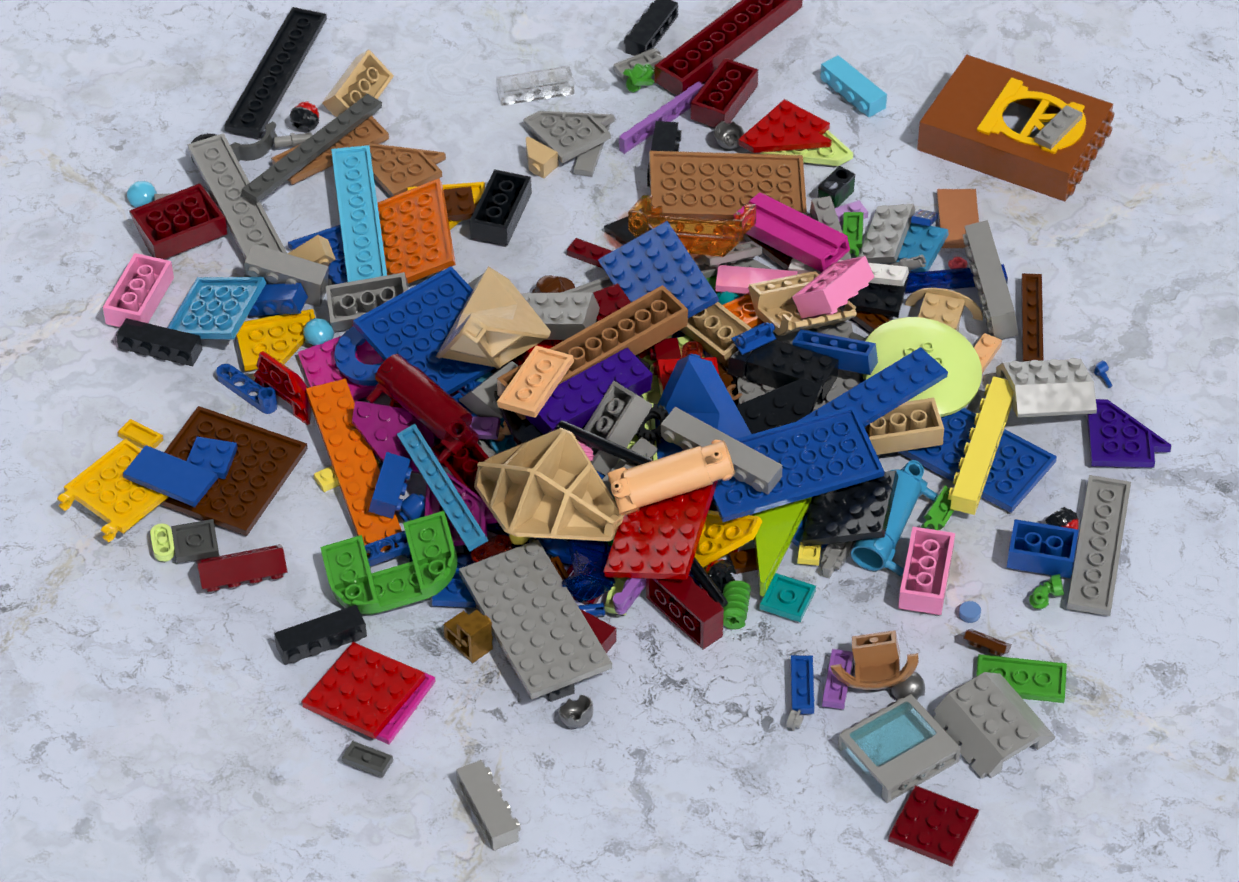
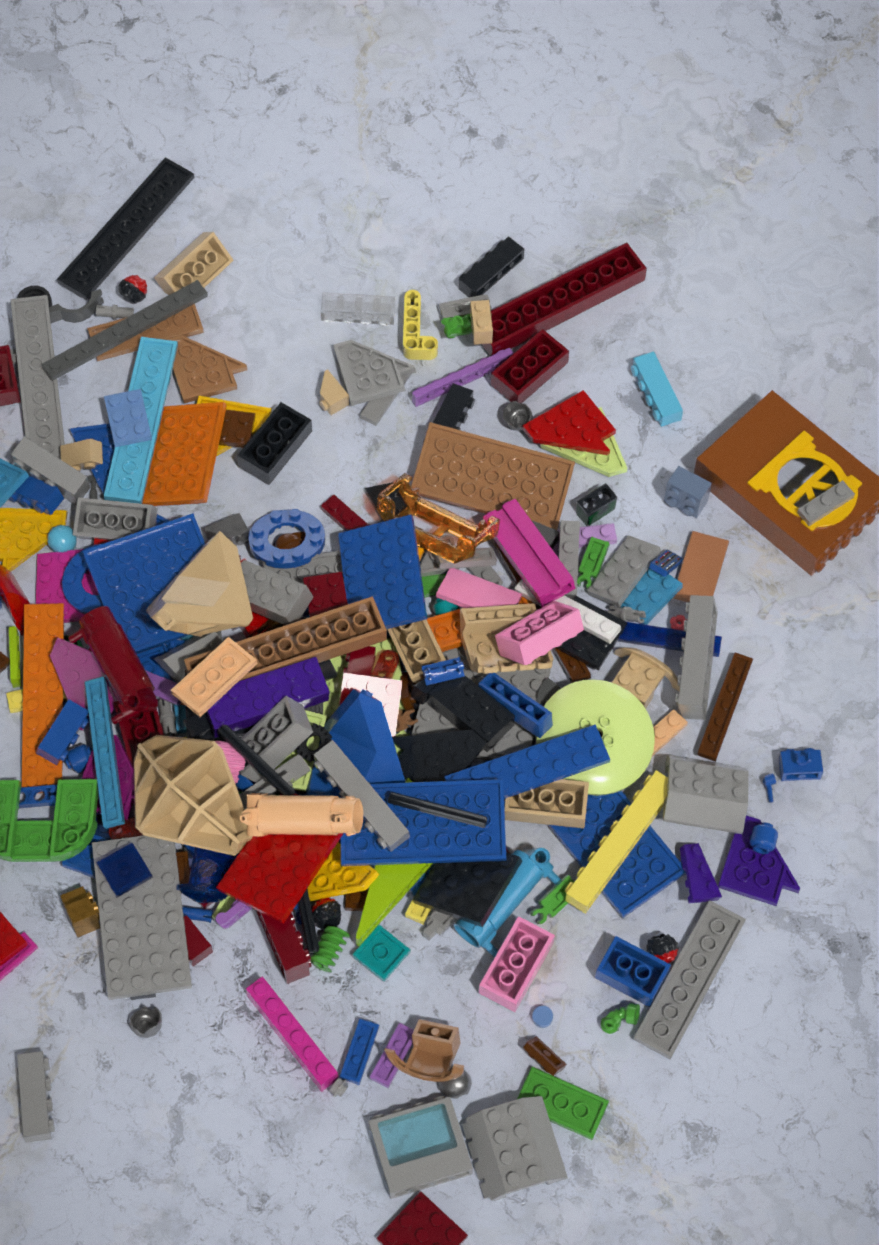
camera: 15 degrees right, 15 degrees up
(309, 438) = (14, 657): none -> lime tile
(346, 215) = (127, 418): none -> medium blue plate
(504, 578) = (124, 870): none -> clear blue plate
(572, 270) = (286, 558): none -> plate
(600, 99) = (412, 324): none -> light yellow beam
(665, 61) = (481, 322): none -> tan brick
(728, 685) = (292, 1034): none -> dark pink brick
(802, 445) = (437, 809): none -> black axle
(920, 156) = (687, 492): none -> sand blue brick
(1070, 457) = (699, 876): none -> dark purple wing
(1119, 409) = (764, 838): none -> blue head
(1125, 347) = (800, 764): none -> blue brick

